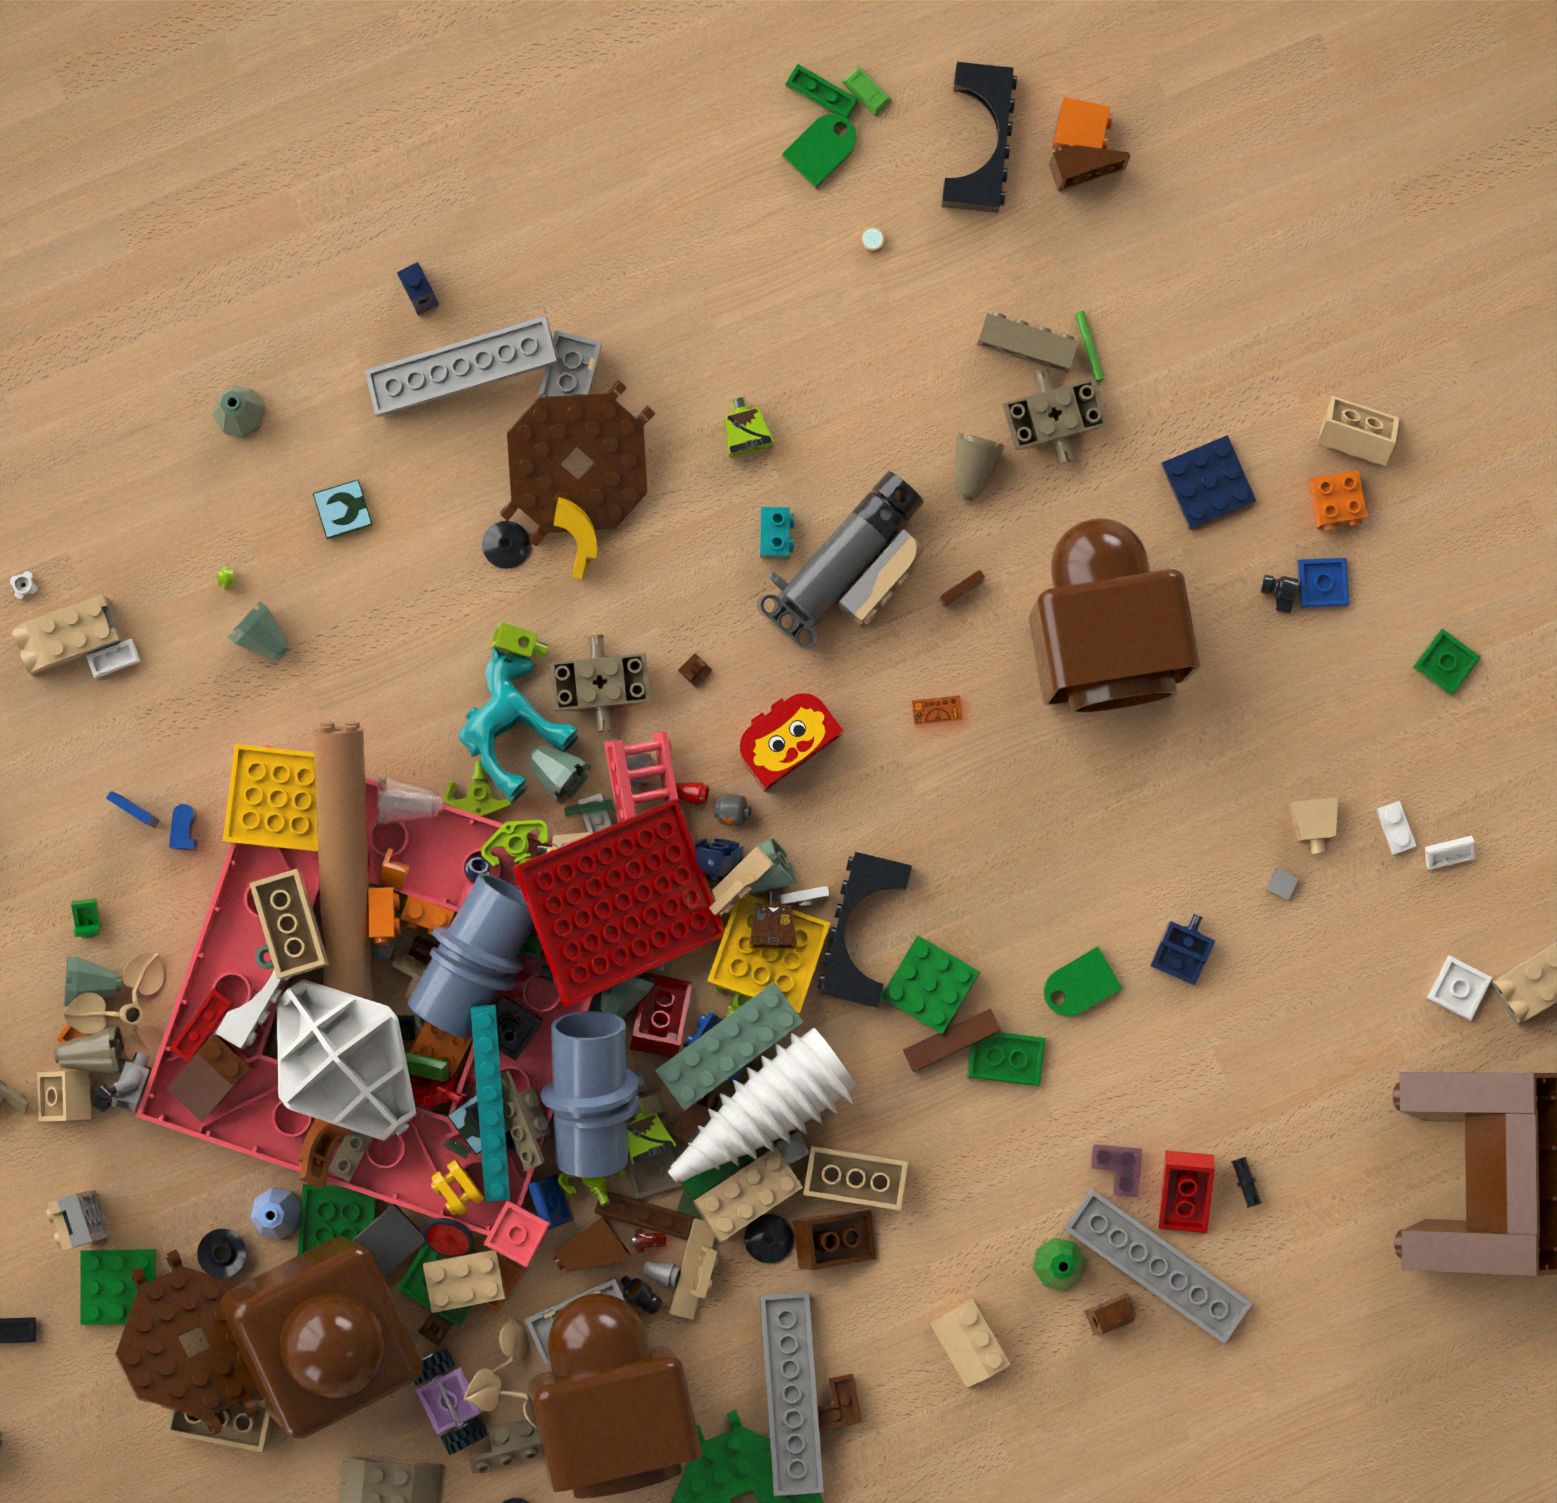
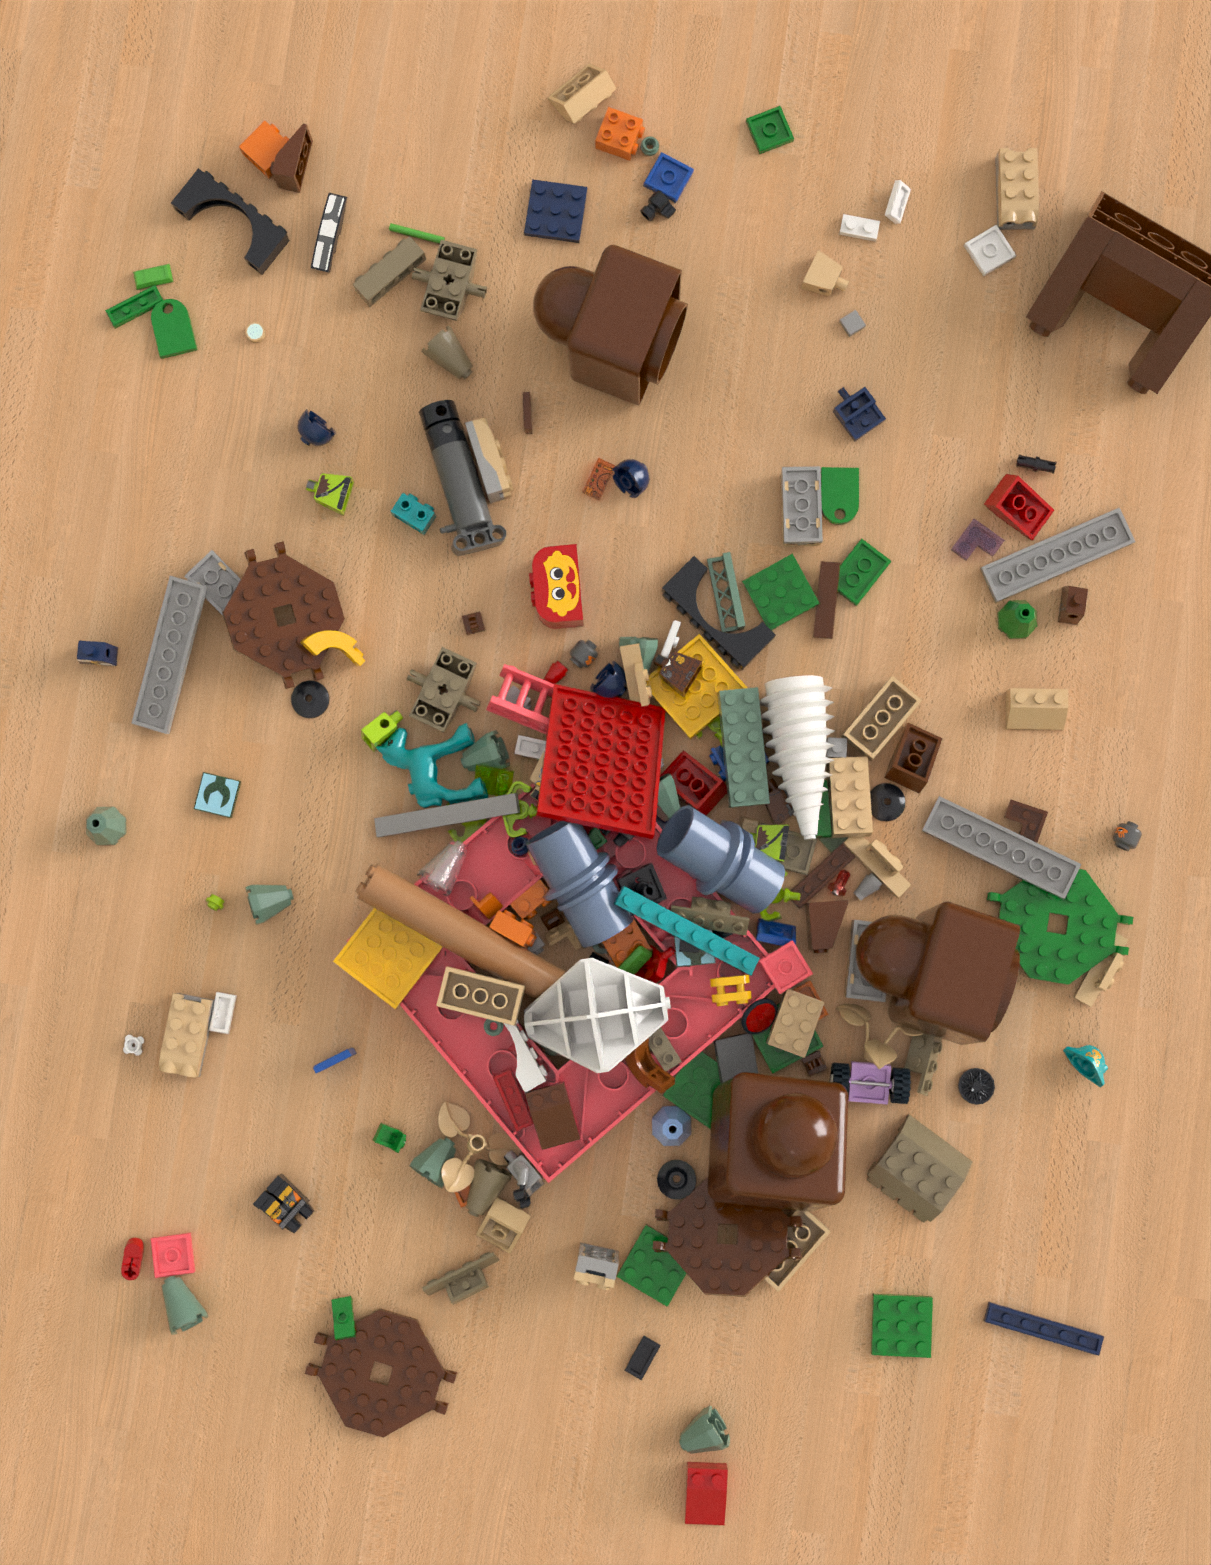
camera: 50 degrees left, 0 degrees up
(181, 828) = (370, 1036): blue leg -> none
(458, 1148) = (703, 972): tile -> none
(465, 770) = (447, 815): none -> light grey tile
(535, 800) = (496, 780): none -> clear neon green hinge
(589, 808) = (524, 748): clear green tile -> none
(640, 1295) = (874, 909): black piece -> none
(801, 369) = (314, 429): none -> dark blue cylinder
(900, 931) = (733, 592): none -> sand green fence
(959, 745) = (631, 477): none -> dark blue cylinder
(1031, 251) = (328, 232): none -> slope
(1038, 950) = (801, 506): none -> light grey piece
(1350, 535) = (649, 141): none -> sand green plate

